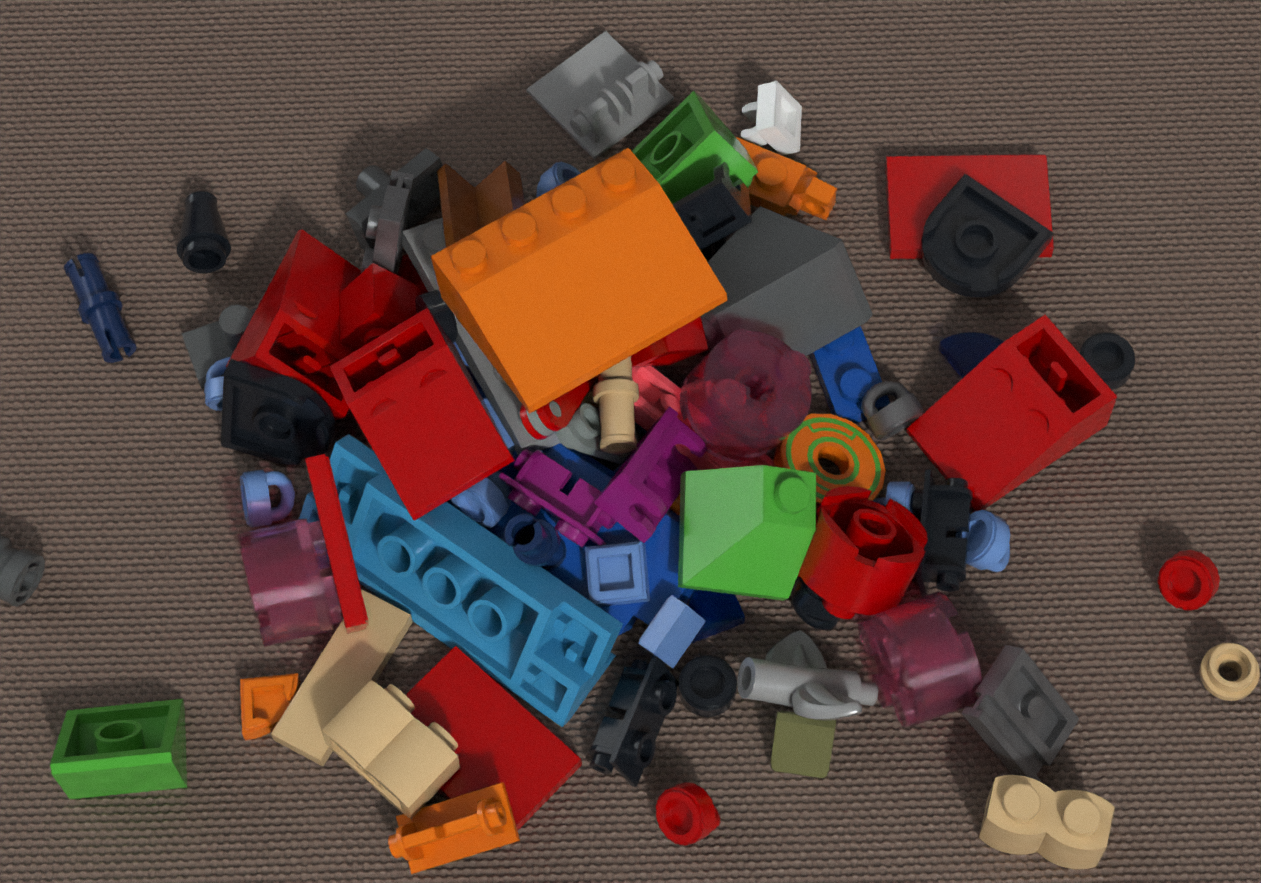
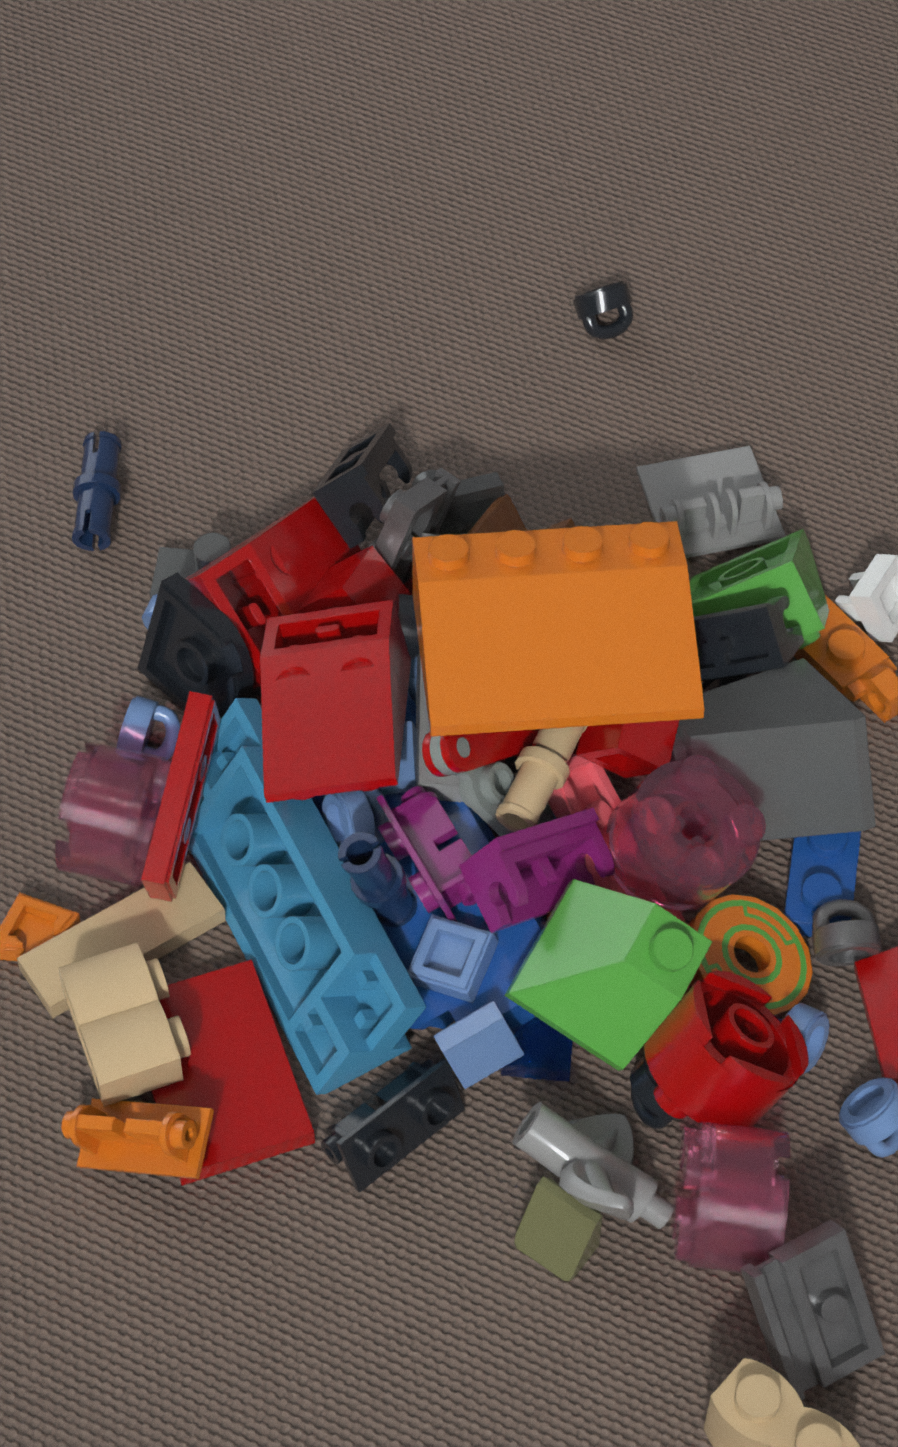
camera: 25 degrees right, 10 degrees down
(202, 237) = (234, 467): black cone -> none
(320, 207) = (352, 487): none -> black hinge
(686, 813) = (393, 1241): red tile -> none
(707, 686) = (489, 1124): black tile -> none
(939, 511) = (837, 1057): black hinge -> none

